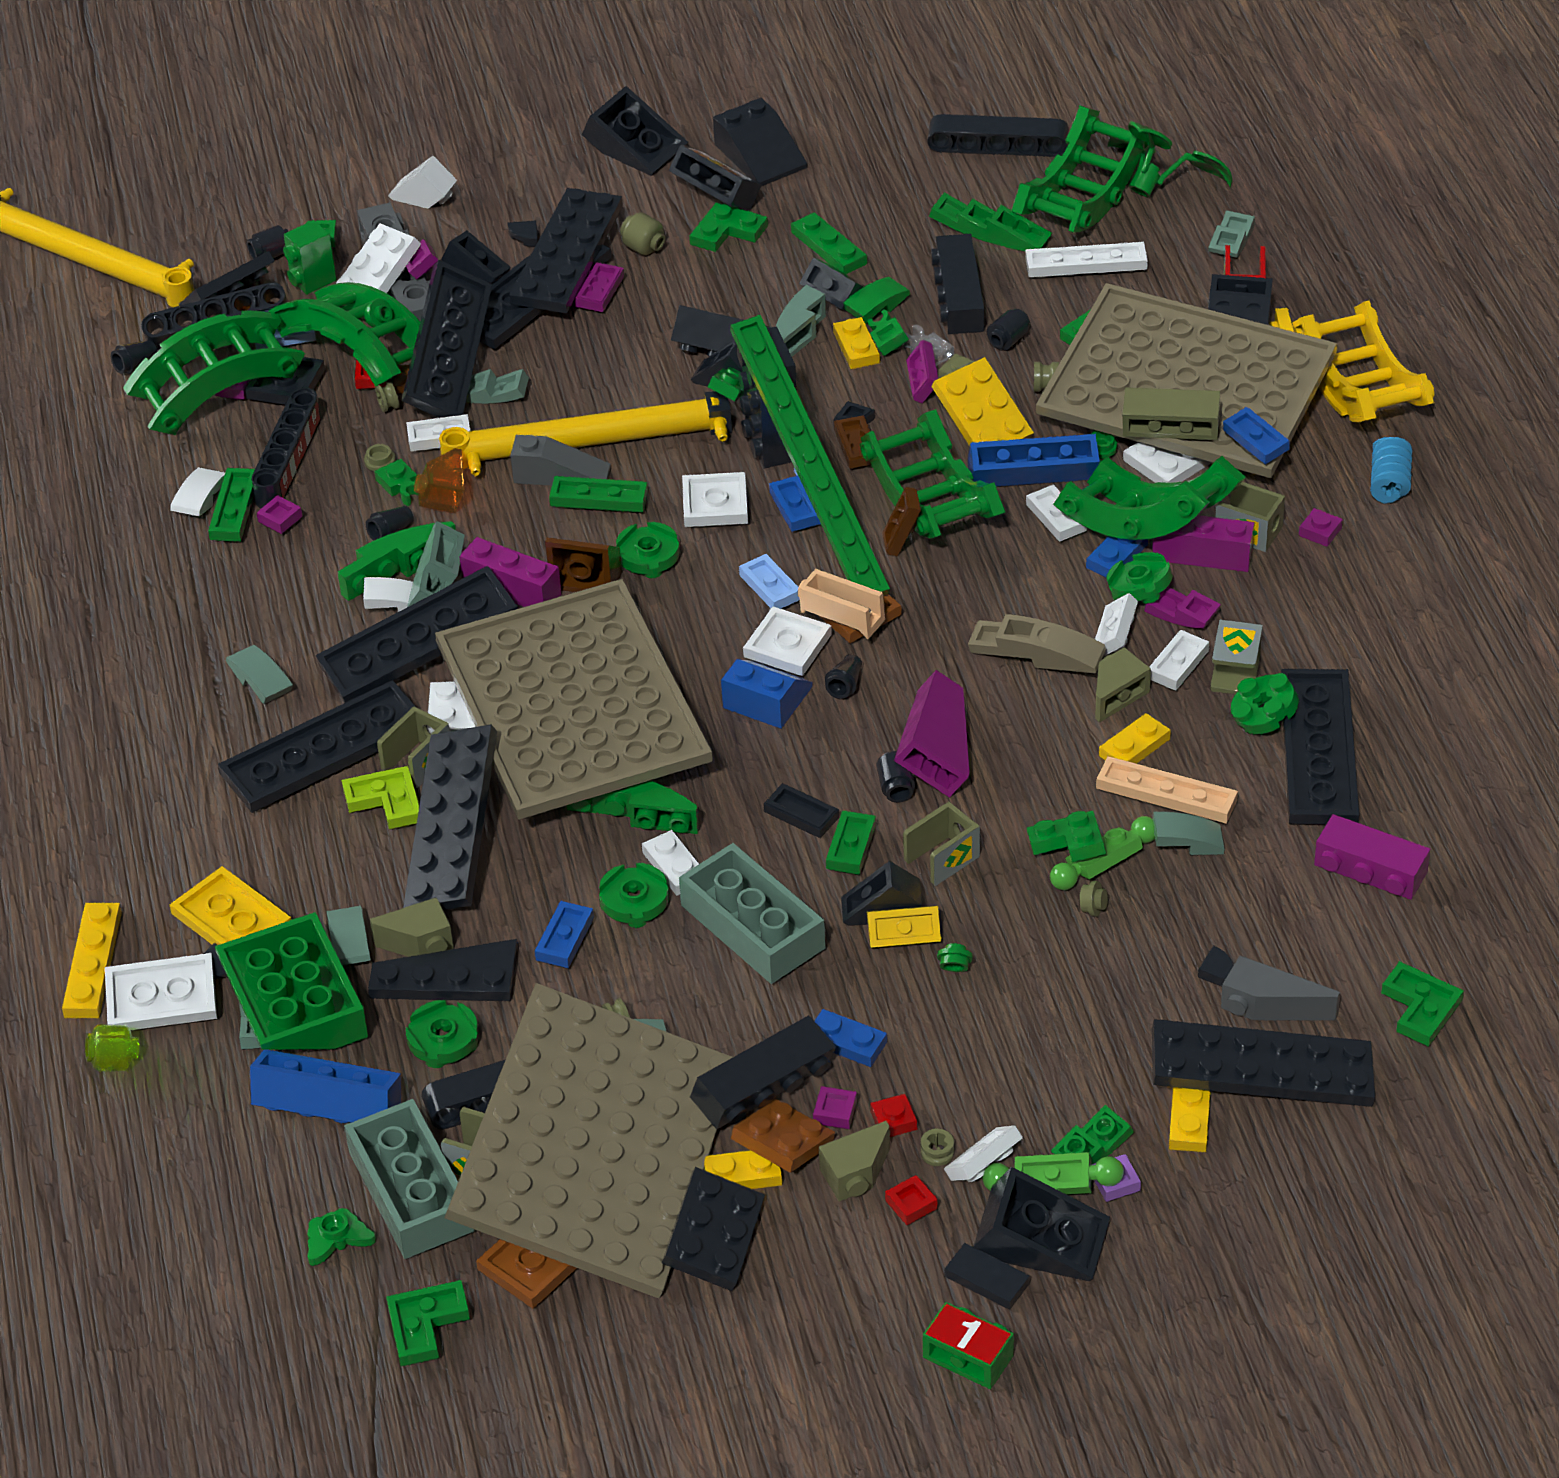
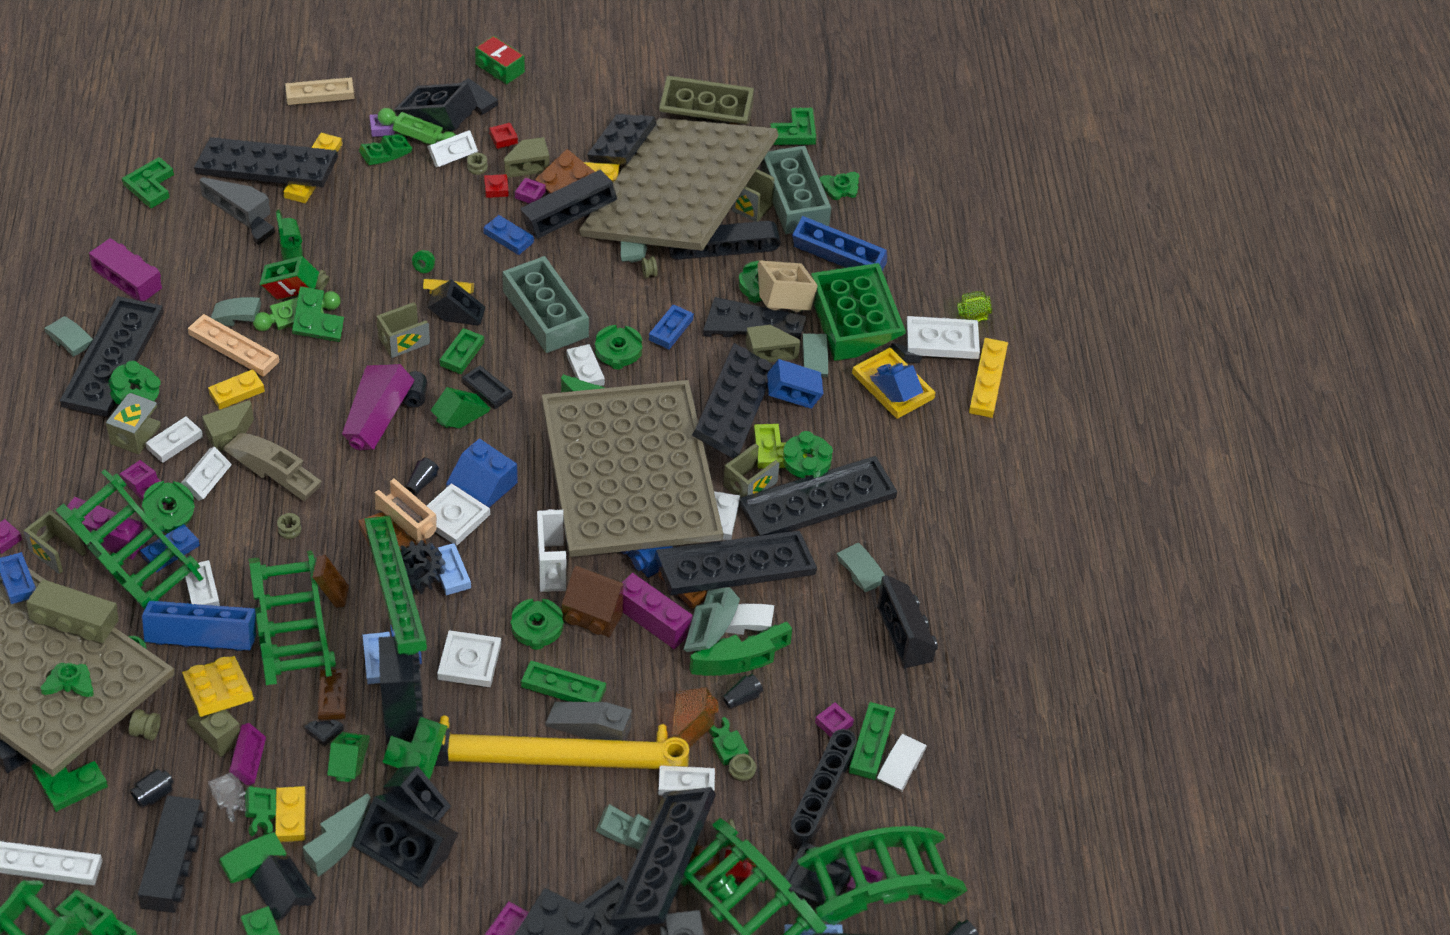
camera: 175 degrees left, 5 degrees up
(198, 609) = (905, 623): none -> black slope
(225, 883) = (897, 382): none -> blue slope
(338, 761) = (807, 444): none -> green plate
(370, 865) = (795, 383): none -> blue brick
(400, 996) = (786, 286): none -> tan slope
(582, 1309) = (707, 99): none -> olive slope
(650, 593) = (551, 564): none -> white panel
(799, 561) = (418, 568): none -> black gear
(815, 388) = (347, 756): none -> green slope
(824, 761) = (458, 408): none -> green slope
(983, 590) = (289, 518): none -> olive bush
(1127, 864) = (286, 277): none -> green brick
(1135, 358) = (69, 677): none -> green animal
(1160, 920) = (289, 237): none -> green panel
(1245, 1220) = (319, 91): none -> tan plate
(1401, 762) = (69, 335): none -> sand green slope

